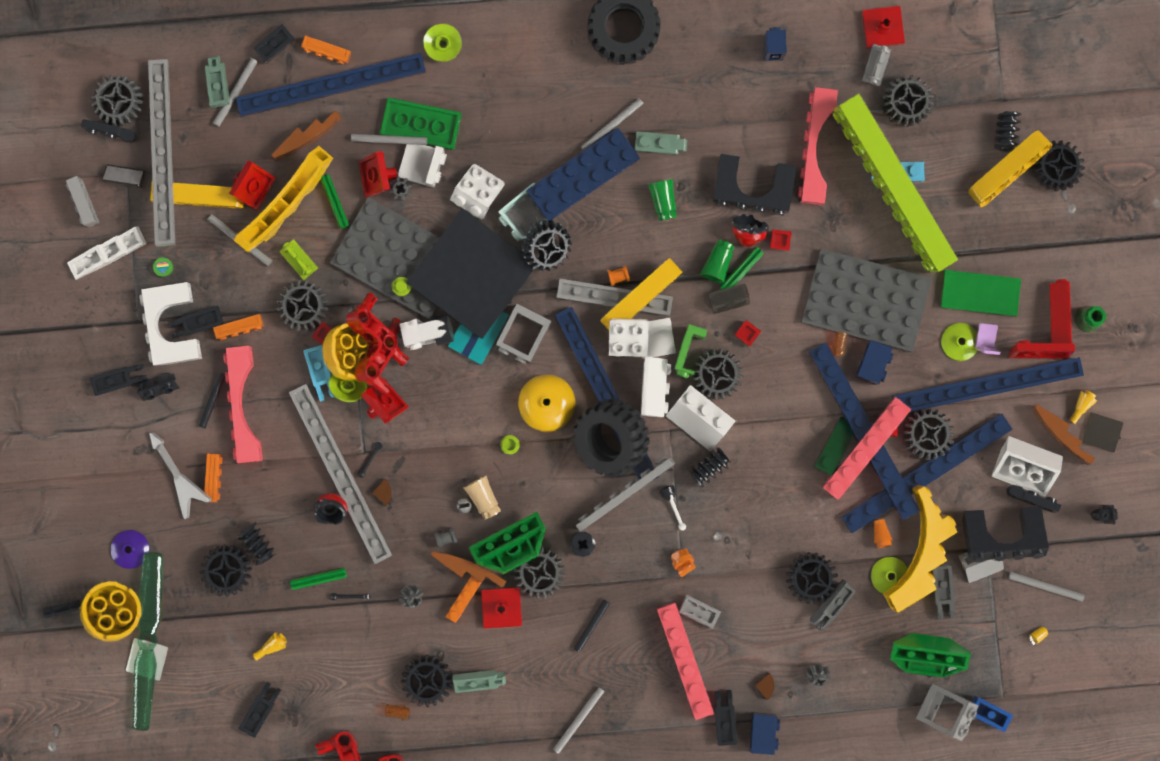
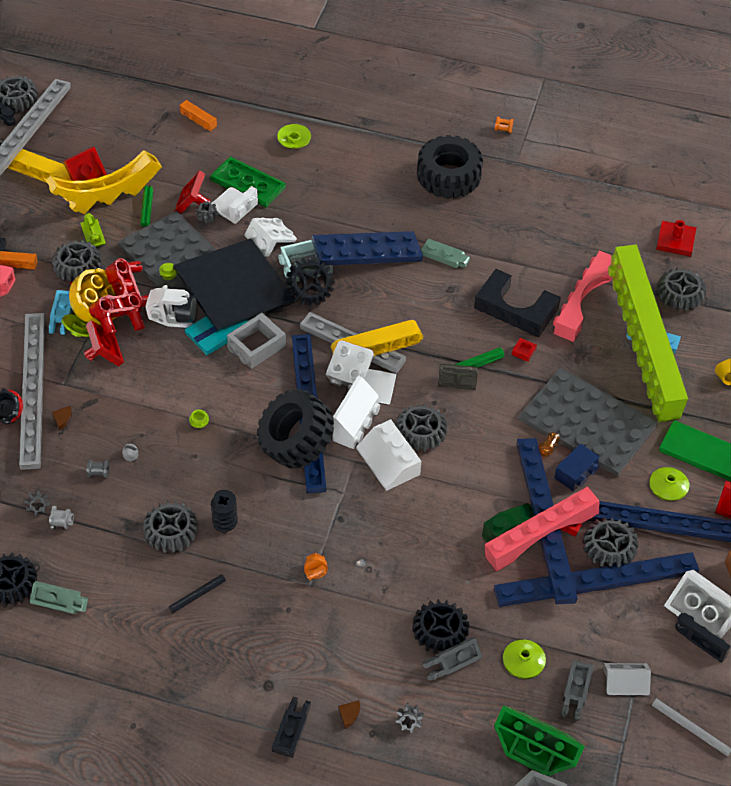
camera: 25 degrees right, 35 degrees down
(217, 82) = (99, 107): sand green hinge -> none
(232, 234) = (53, 207): light grey bar -> none
(235, 92) = (110, 119): light grey bar -> none
(274, 43) = (159, 99): black plate -> none
(300, 140) = (165, 157): dark orange slope -> none
(330, 85) = (189, 135): dark blue plate -> none
(361, 473) = (79, 382): black hinge -> none
(389, 139) = (219, 181): light grey bar -> none
(440, 602) = (60, 518): none -> light grey brick
(461, 566) = (103, 497): dark orange slope -> none
(463, 599) = (85, 525): orange piece -> none
(483, 497) = (150, 444): tan plant -> none
(501, 607) = (117, 547): red tile -> none
(511, 545) = (154, 486): green wedge -> none
(548, 417) = (247, 396): yellow cylinder -> none
(578, 720) = (138, 674): light grey bar -> none
(612, 124) = (420, 227): light grey bar -> none
(618, 275) = (361, 327): orange bush -> none
(631, 488) = (290, 485): light grey plate -> none
(663, 199) = (430, 286): green plant -> none
(668, 493) = (329, 506): hinge -> none
(685, 661) = (275, 655): coral arch -> none
(691, 331) = (414, 389): bright green panel -> none
(699, 611) = (312, 617): light grey plate -> none
(710, 467) = (380, 495): black piece -> none
(718, 262) = (457, 346): green plant -> none
(747, 333) = (463, 407): red plate -> none
(749, 230) = (497, 331): hair -> none
(763, 733) = (326, 755): dark blue brick -> none
(774, 44) = (574, 213): dark blue brick -> none
(876, 64) = (661, 258): light grey hinge -> none
(881, 534) = (529, 615): orange cone -> none
(929, 554) = (551, 666): yellow arch -> none
(984, 547) = (683, 666): black arch -> none
(986, 338) = (697, 485): lavender bracket -> none
(1038, 635) = (668, 772): yellow piece -> none

